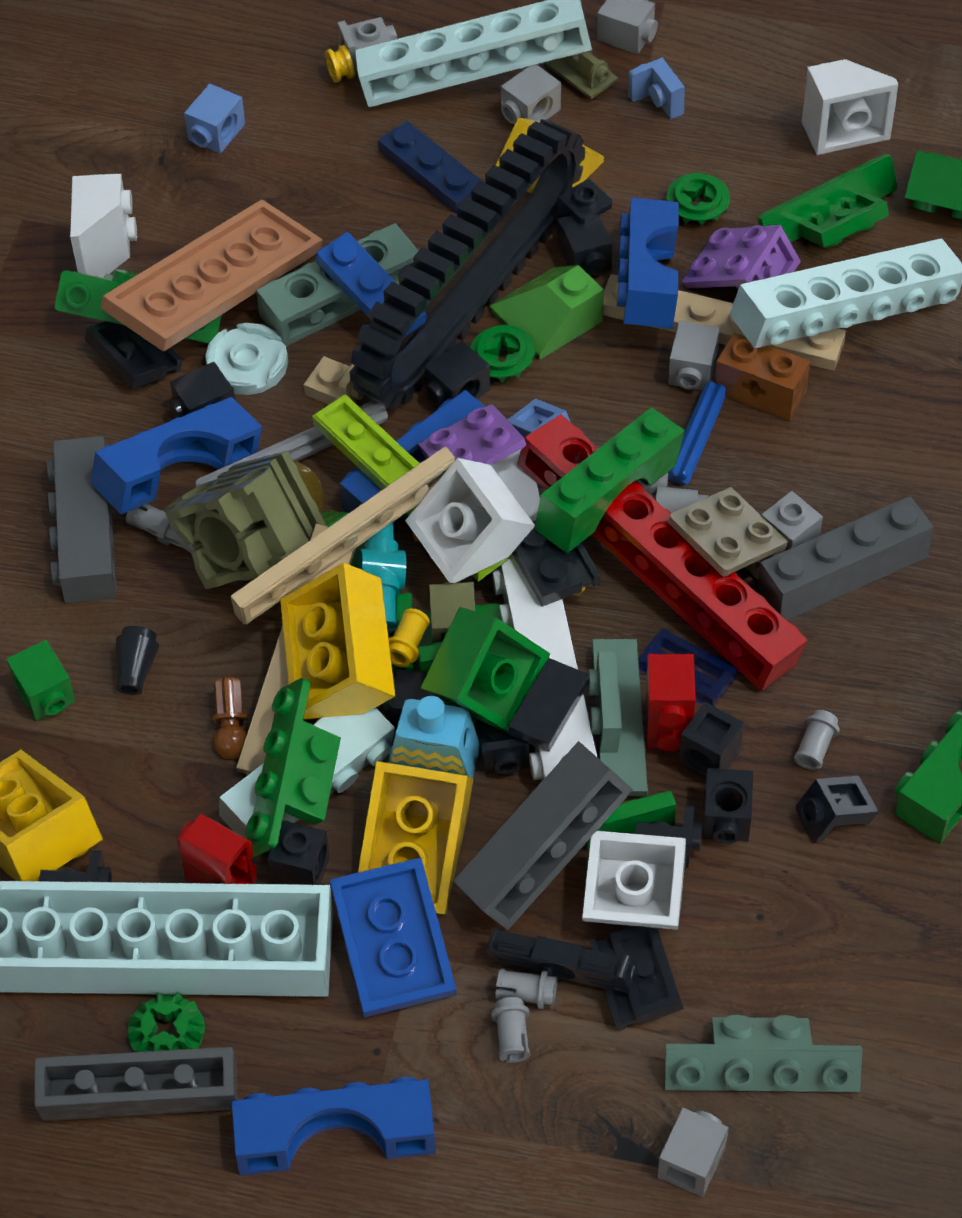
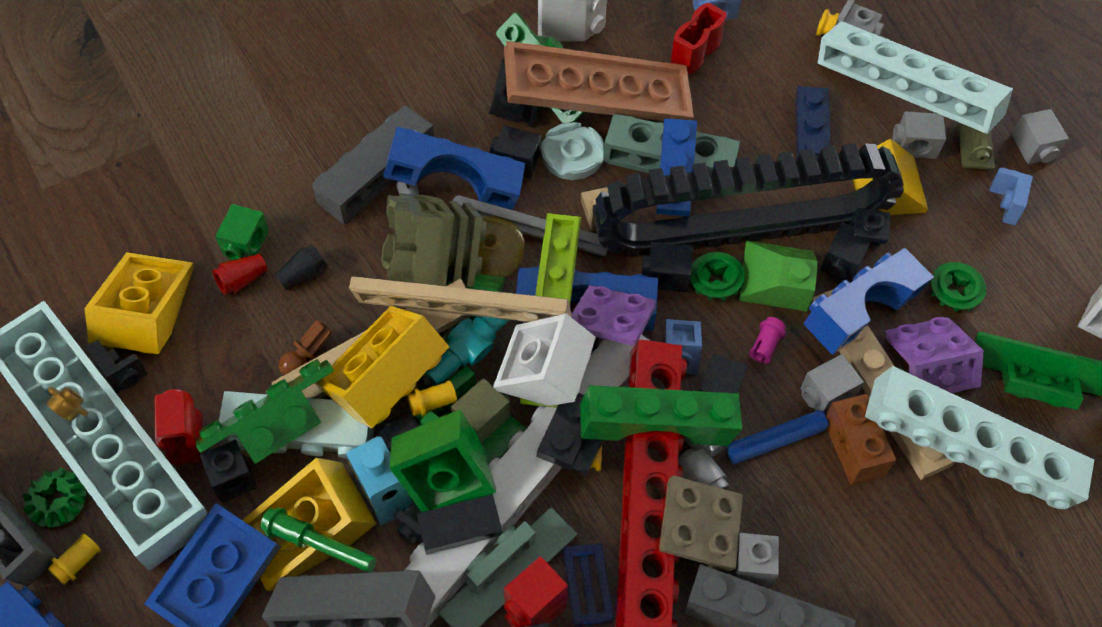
camera: 45 degrees right, 5 degrees up
(82, 717) = (239, 273): none -> red cone
(107, 919) = (66, 403): none -> pearl gold plate
(245, 164) = (698, 37): none -> red brick
(255, 1057) = (73, 559): none -> yellow pin
(434, 827) = (302, 534): none -> green pin
(600, 359) = (771, 332): none -> dark pink pin
(605, 419) = (723, 375): none -> black brick

